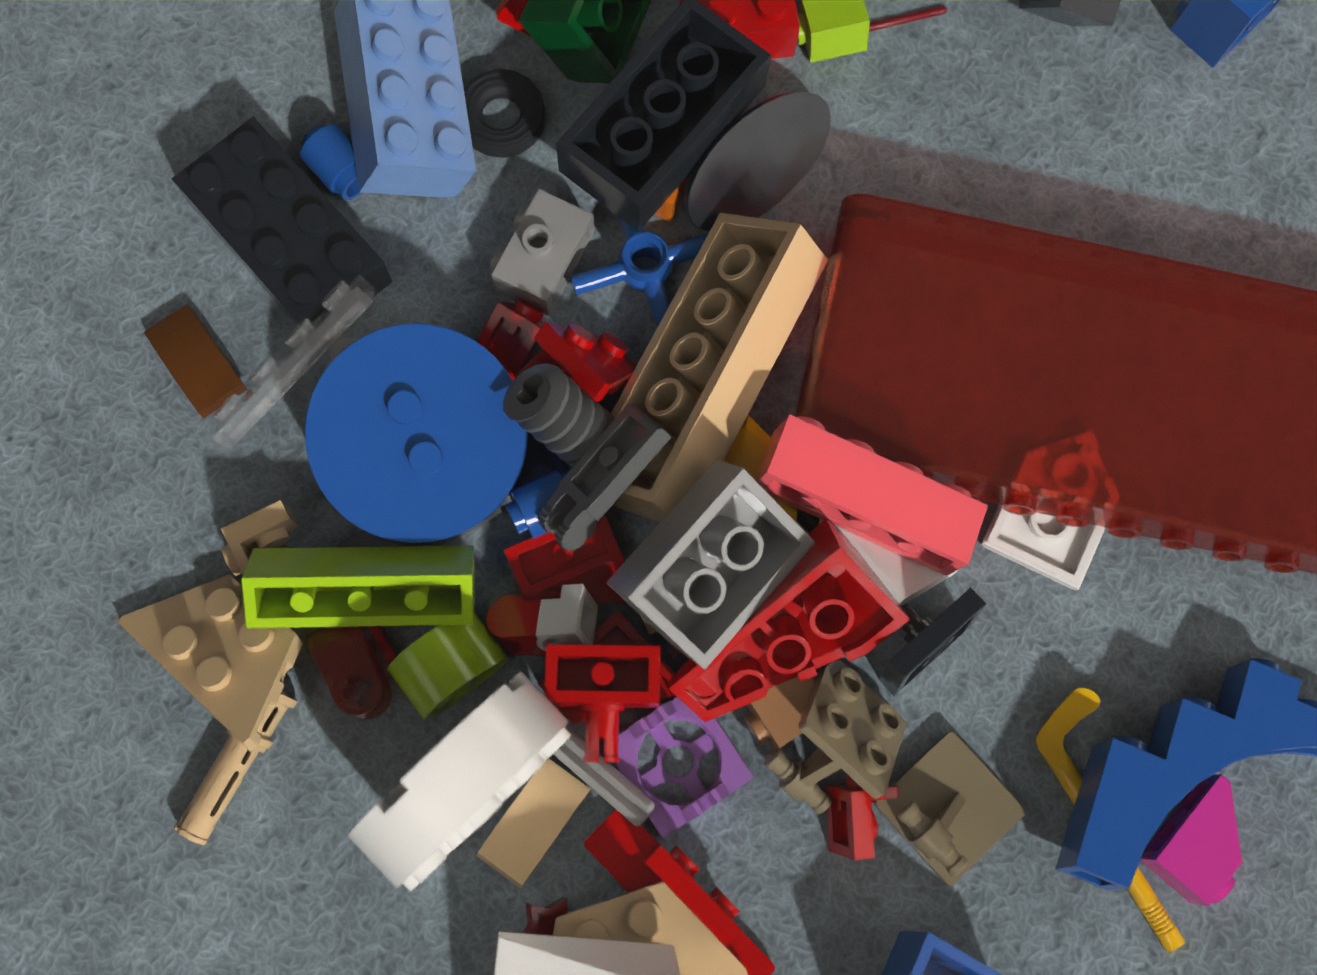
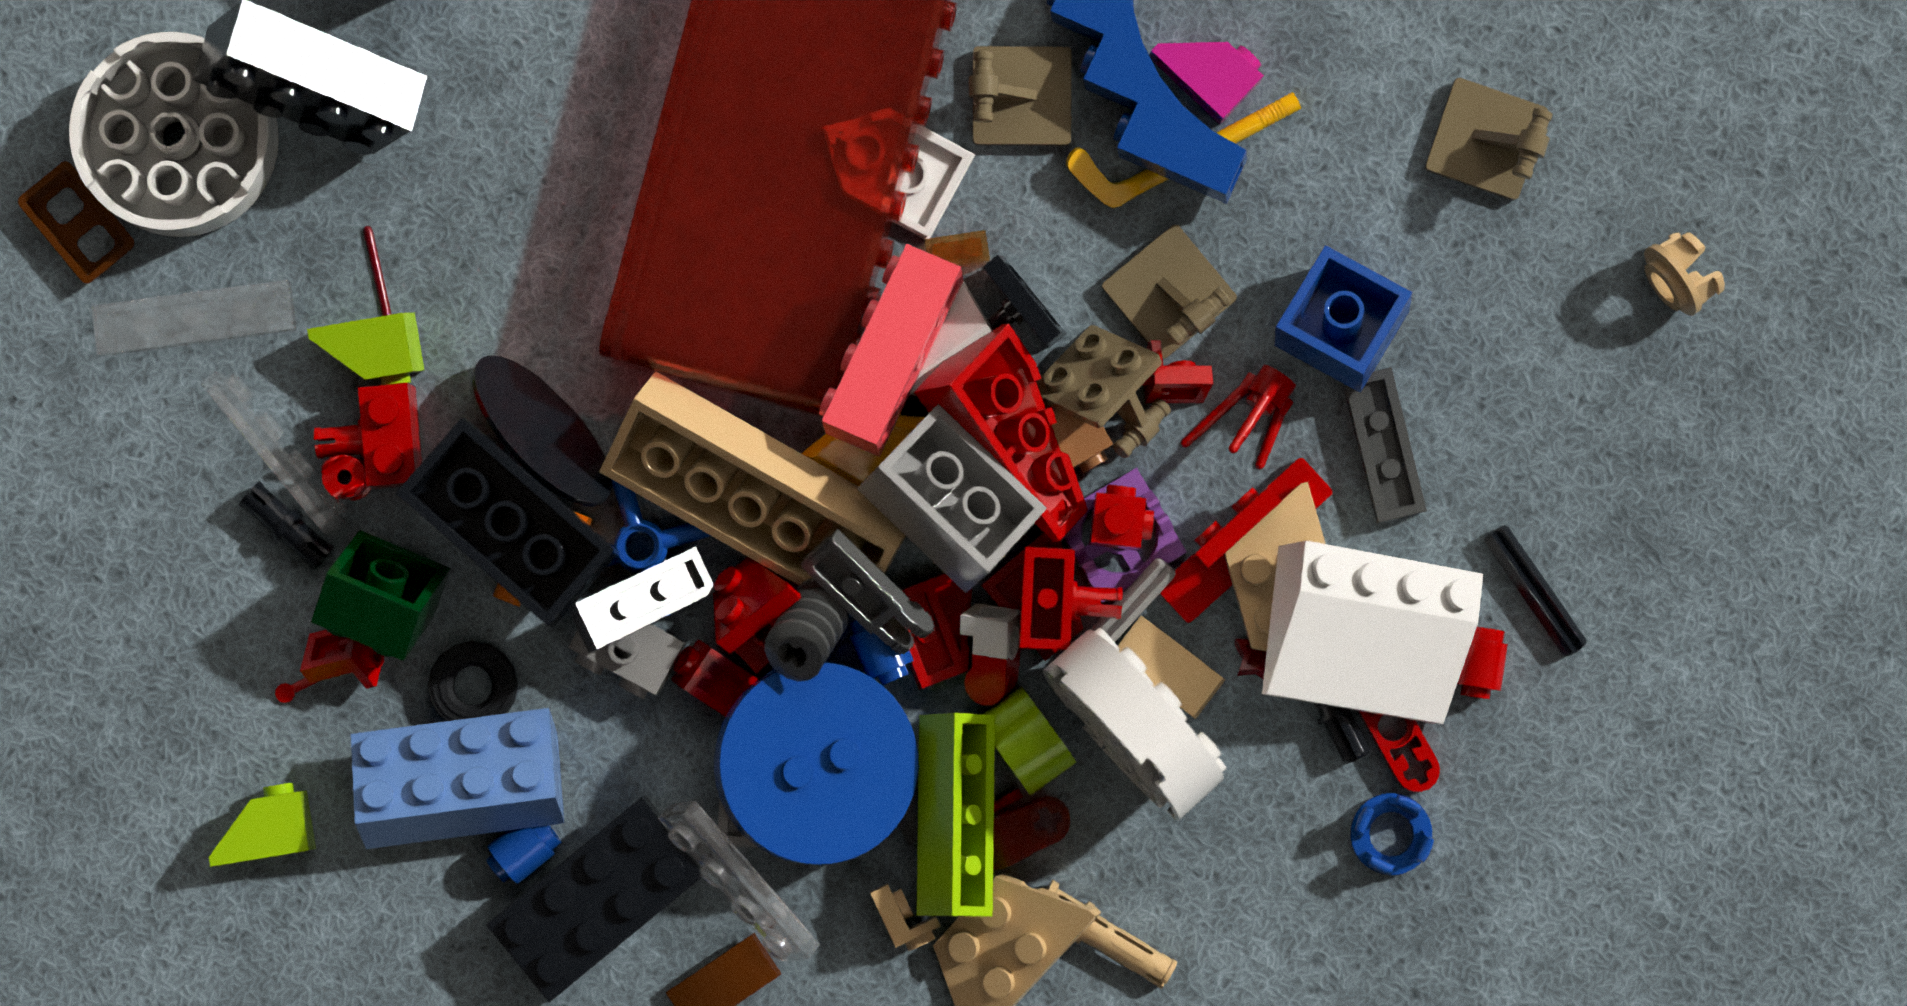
camera: 85 degrees left, 10 degrees up
(589, 252) = (641, 599): none -> plate
(696, 758) = (1120, 519): none -> red brick
(844, 923) = (1267, 393): none -> red plant
(979, 574) = (960, 249): none -> clear orange piece
(1148, 633) = (1021, 95): none -> dark tan plate

